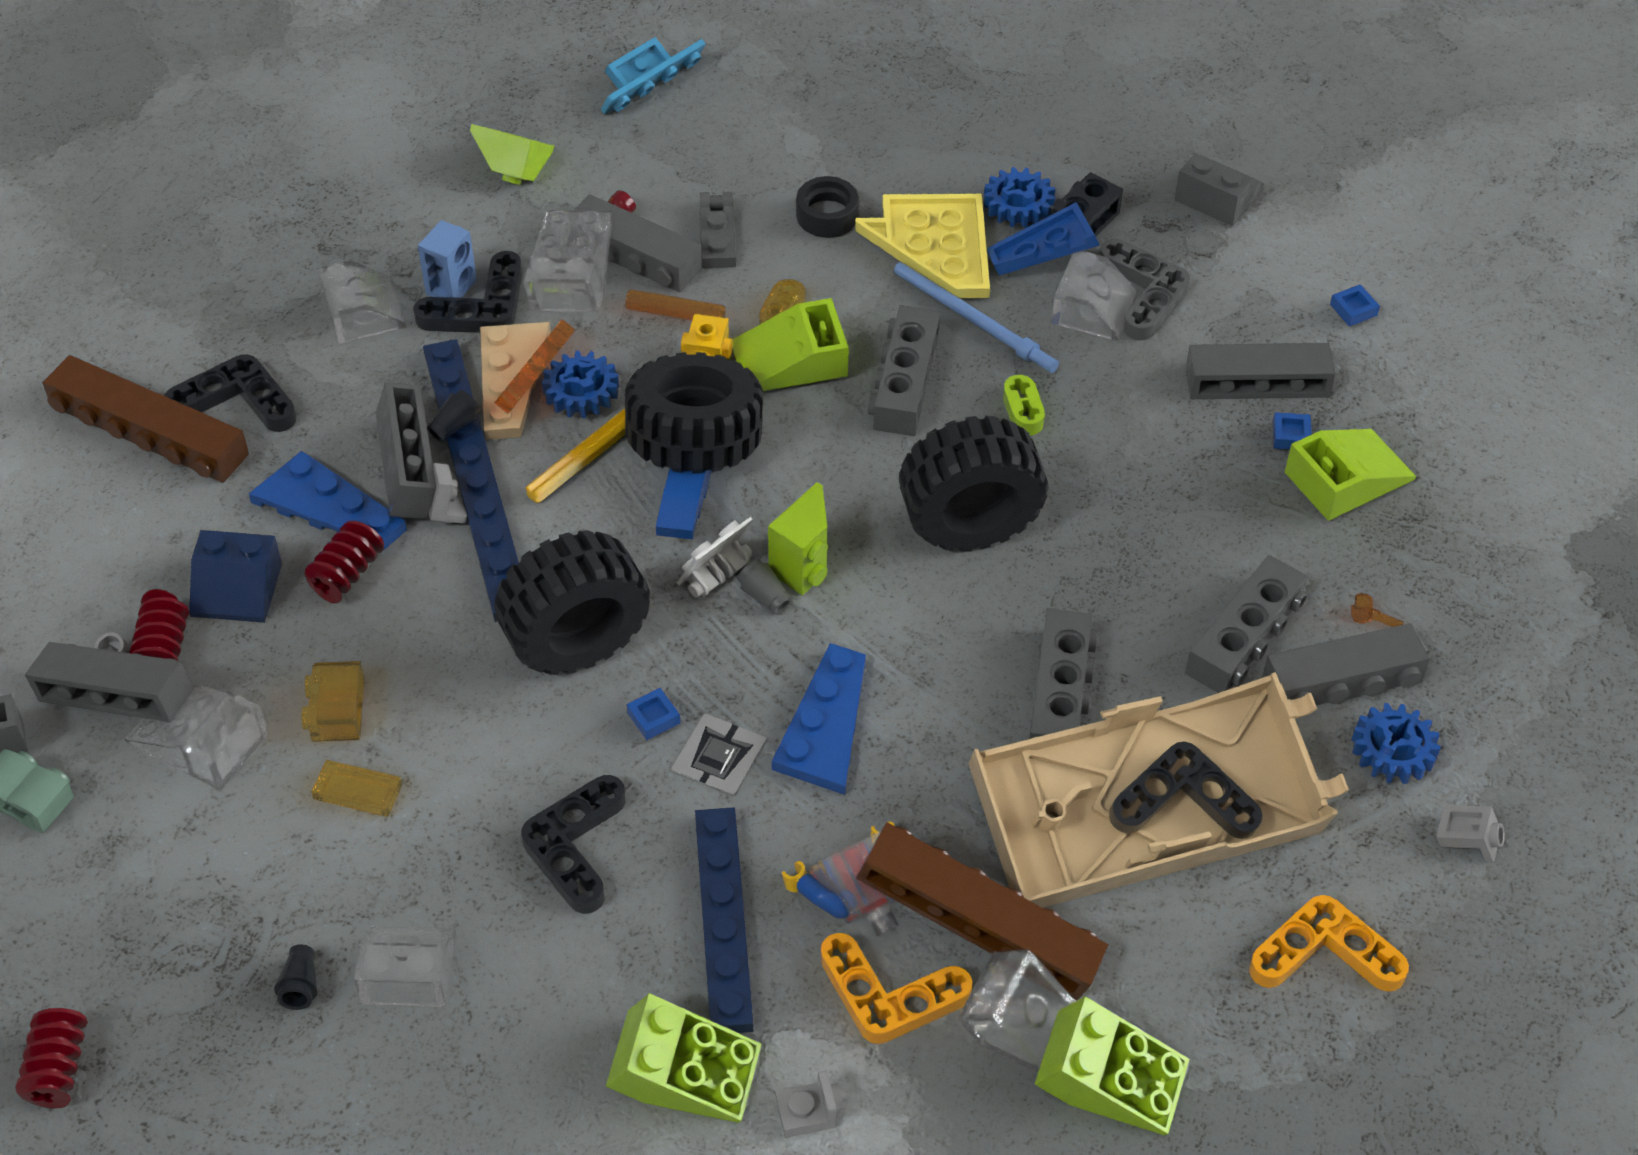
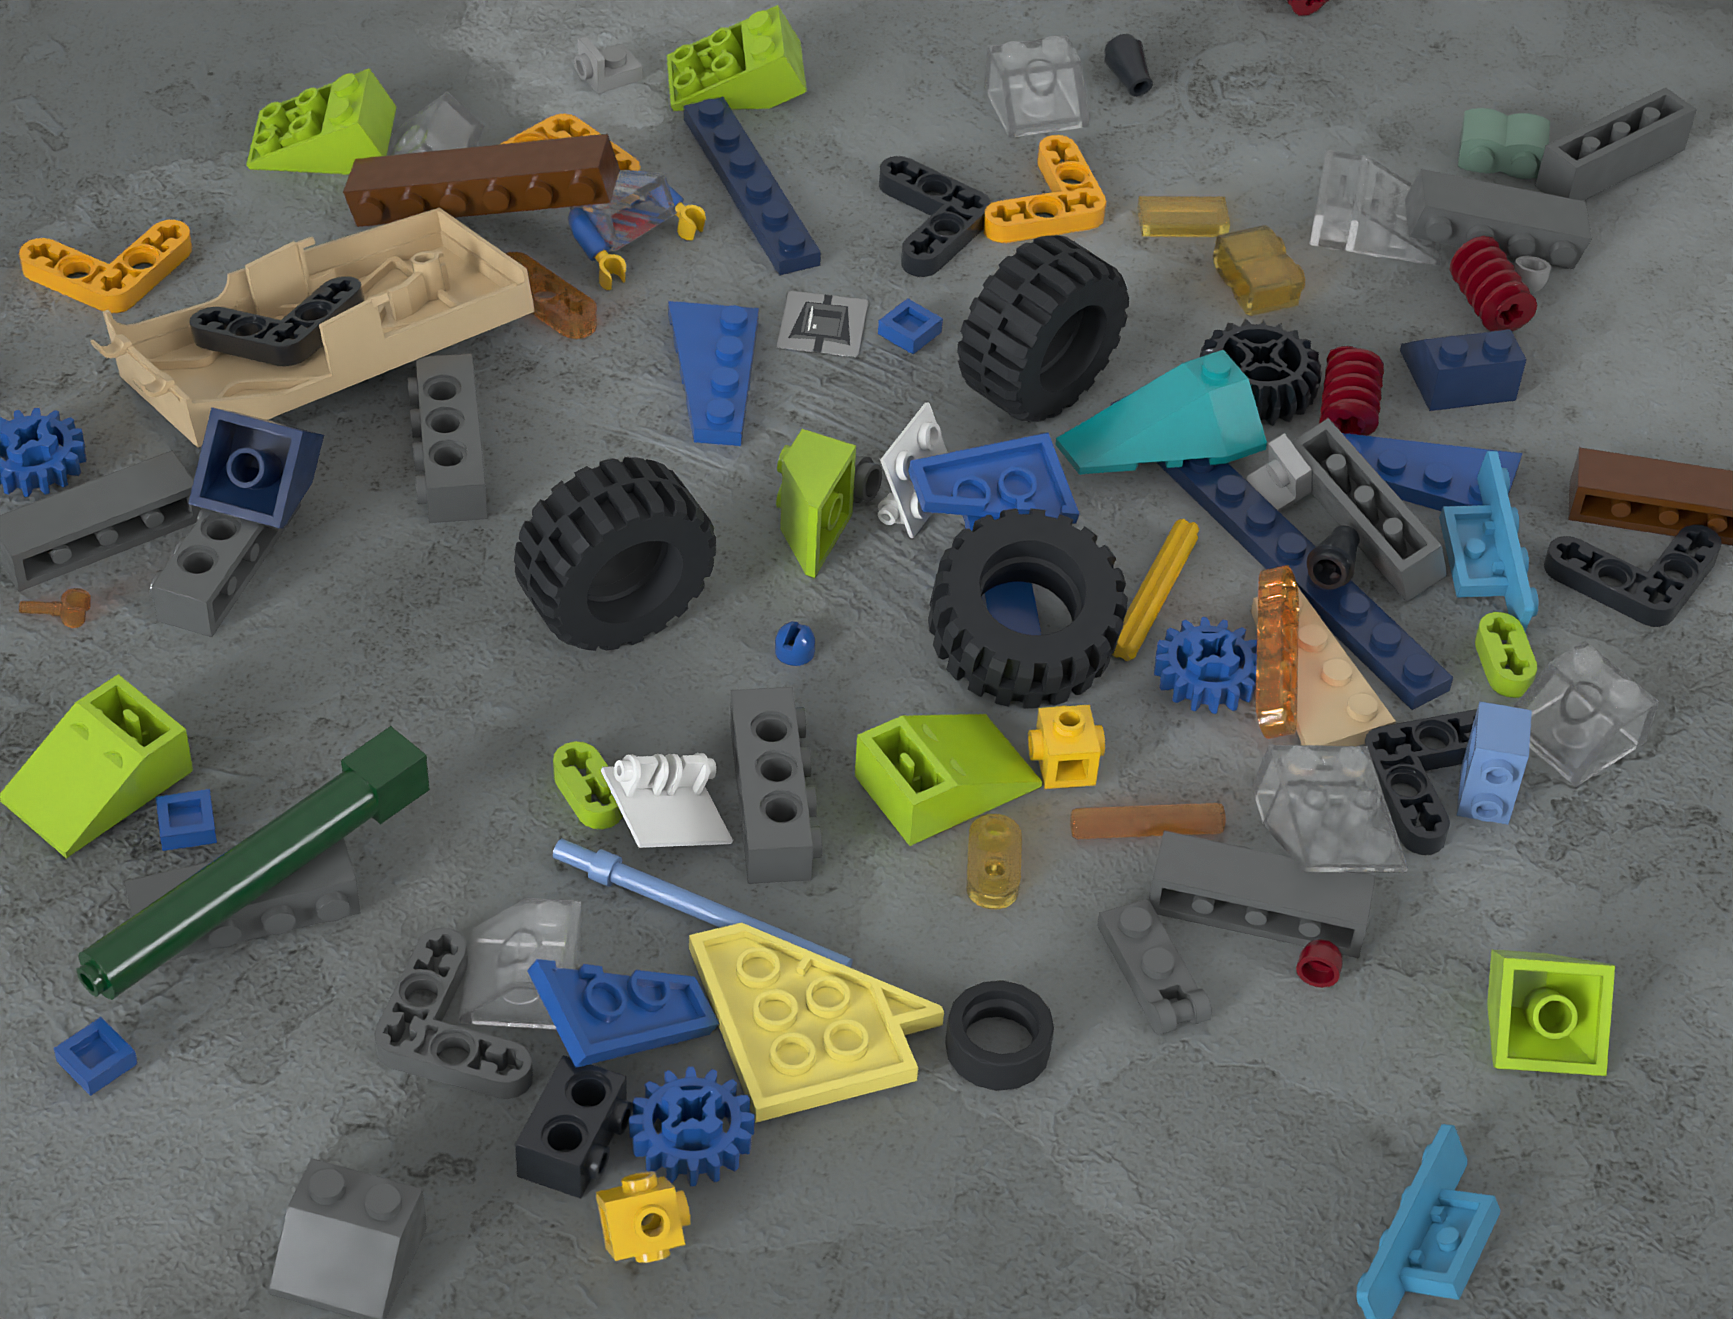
camera: 160 degrees right, 5 degrees down
(335, 416) = (1486, 547): none -> dark azure bracket
(367, 357) = (1496, 656): none -> lime beam
(399, 602) = (1277, 363): none -> black gear
(446, 829) = (1073, 205): none -> light orange beam
(487, 549) = (1183, 415): none -> teal wedge
(662, 503) = (994, 479): none -> blue wing
(857, 472) = (803, 647): none -> blue hinge
(945, 809) = (569, 310): none -> clear orange beam
(978, 370) = (667, 799): none -> white hinge
(1072, 153) = (623, 1213): none -> yellow brick
(1171, 376) = (373, 784): none -> dark green brick
(1220, 635) = (254, 467): none -> dark blue slope

